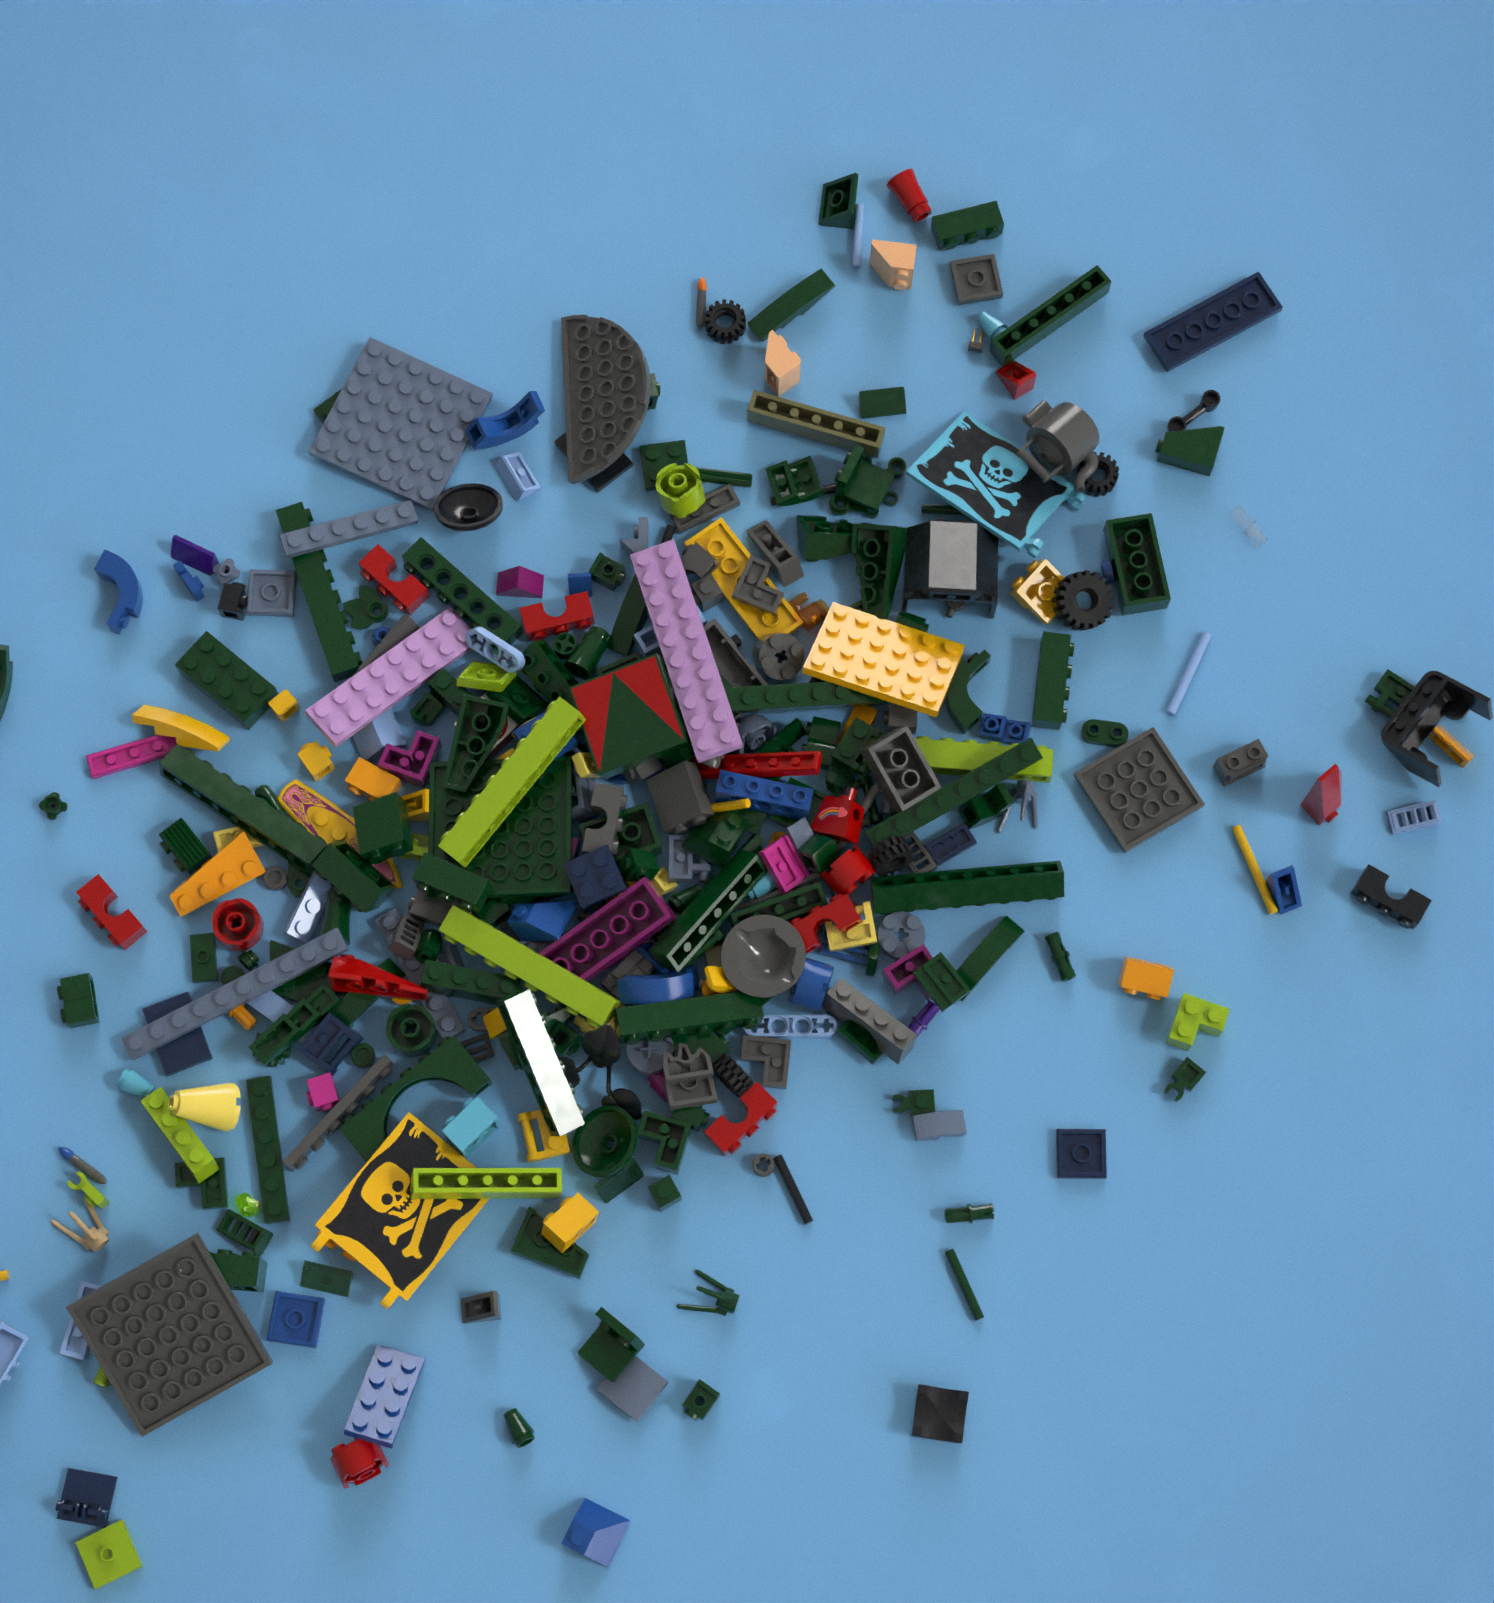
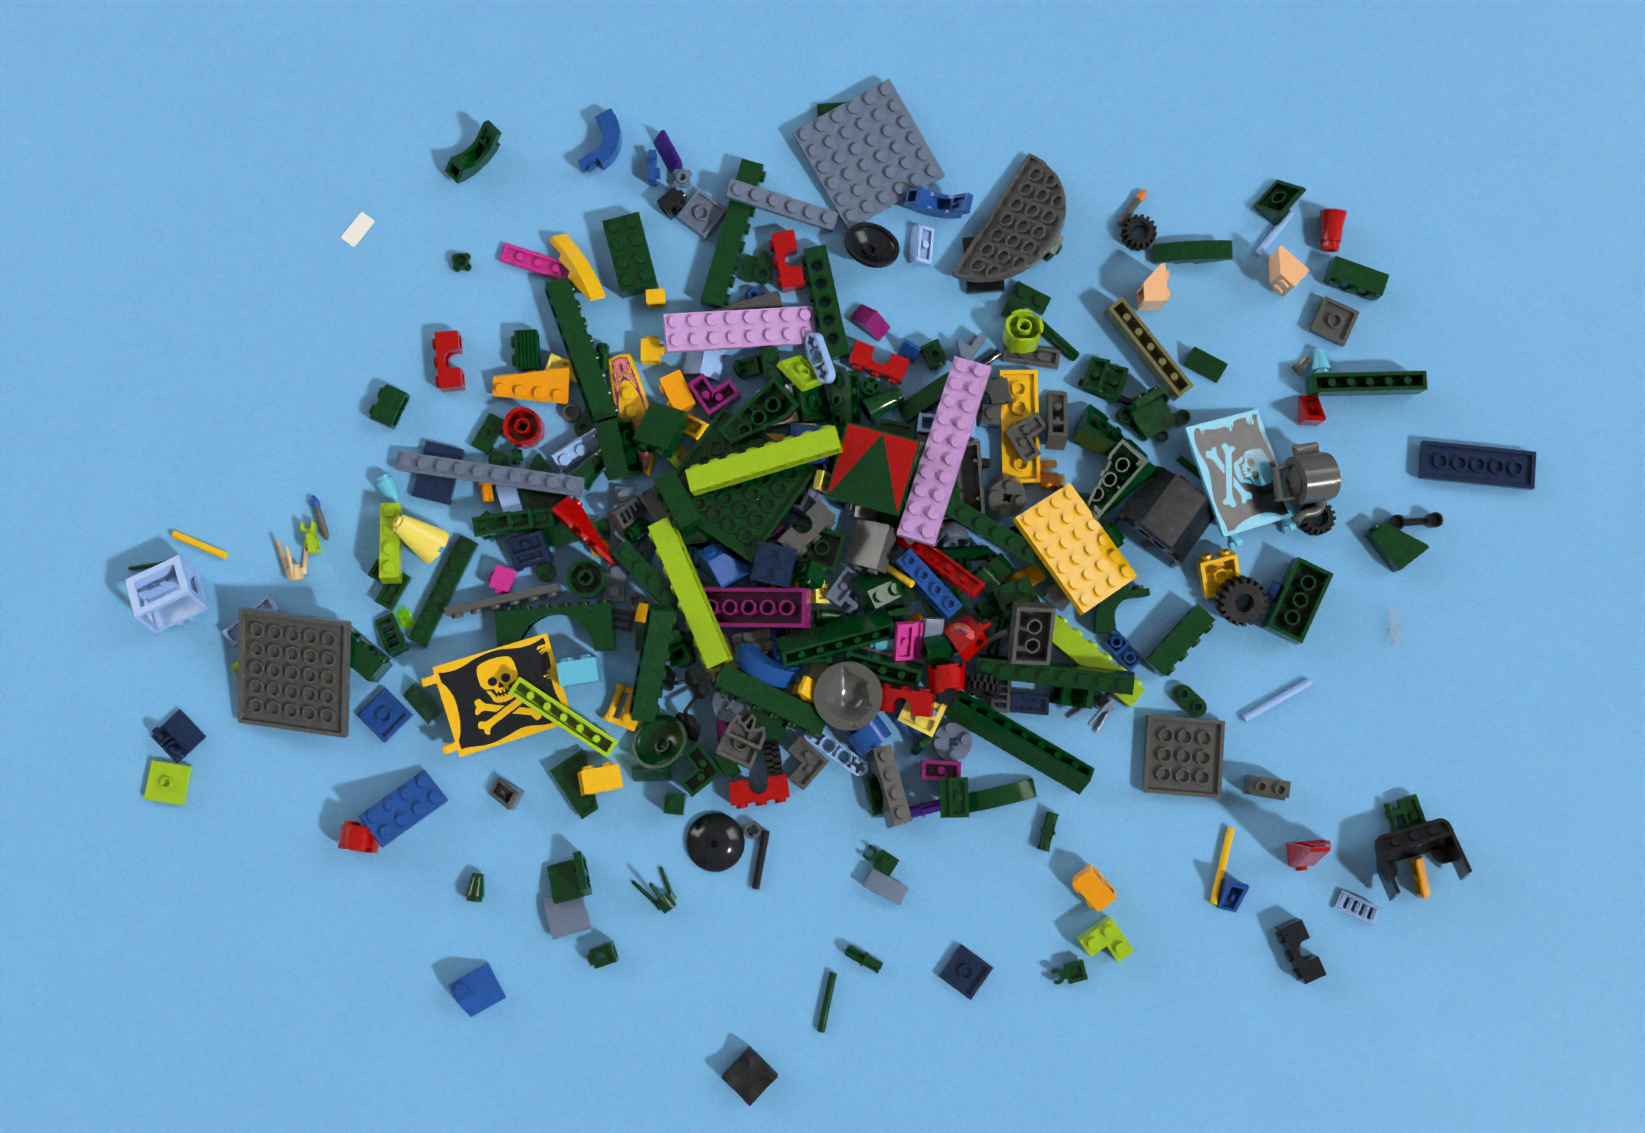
camera: 30 degrees right, 10 degrees up
(738, 1222) = (720, 828): none -> black dish

